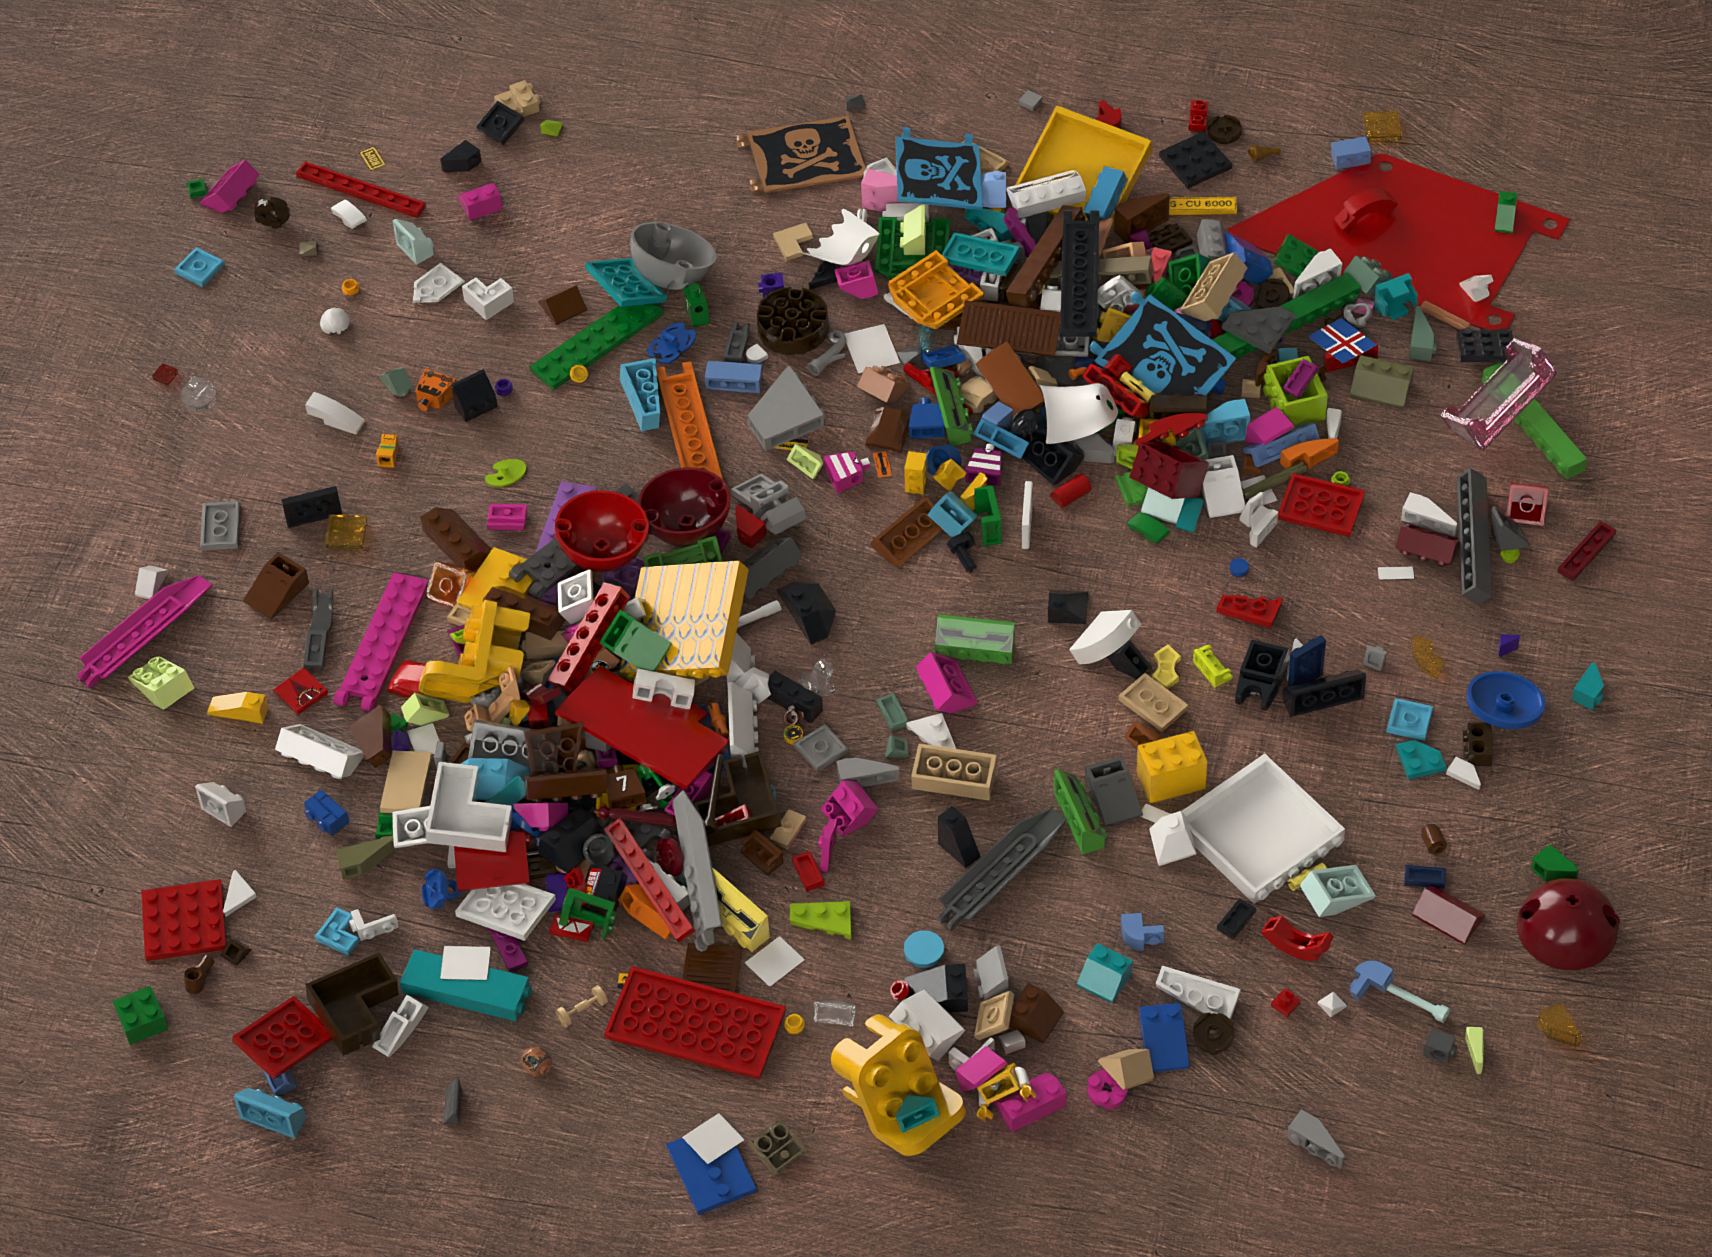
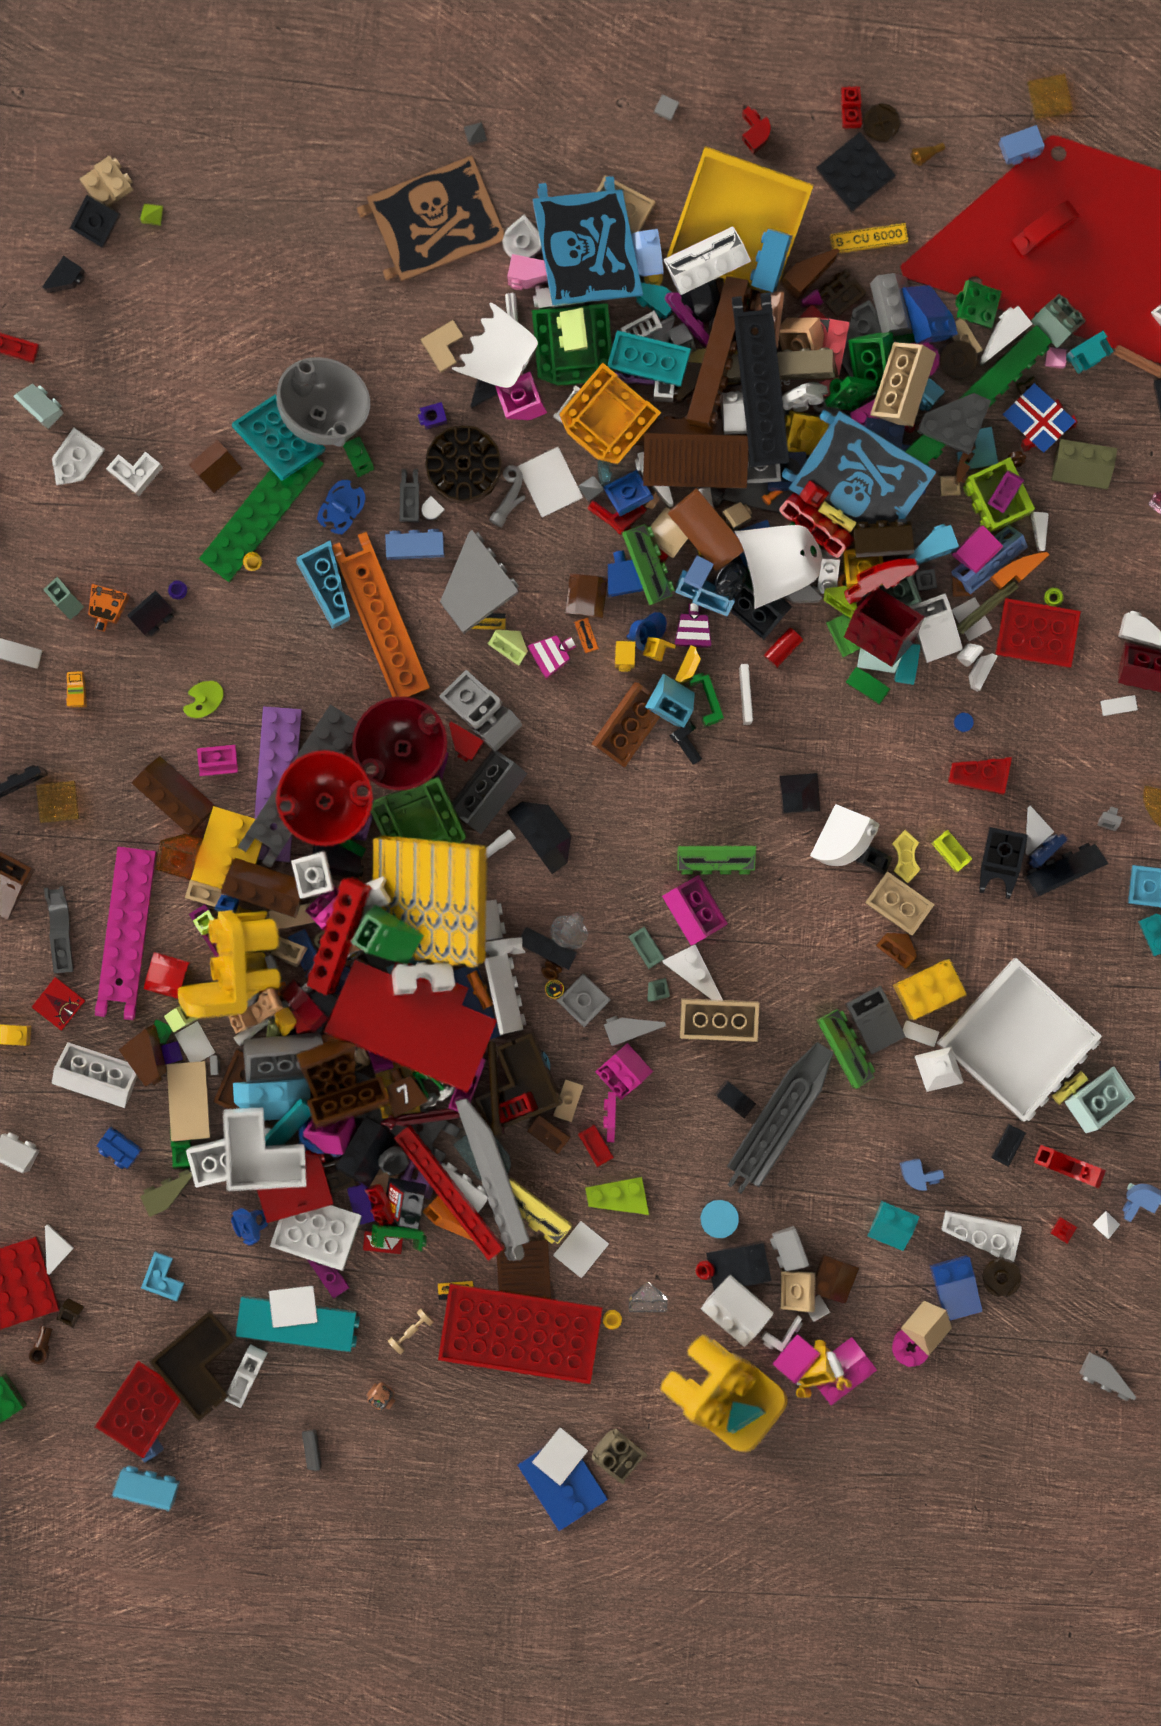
camera: 10 degrees left, 35 degrees up
(374, 928) = (179, 1271): white bracket -> none
(480, 201) = (96, 332): dark pink slope -> none
(670, 856) = (463, 1159): dark red tile -> none
(883, 383) = (572, 534): nougat slope -> none
(1359, 322) = (1054, 384): light grey piece -> none
(1422, 338) = (1120, 400): sand green slope -> none

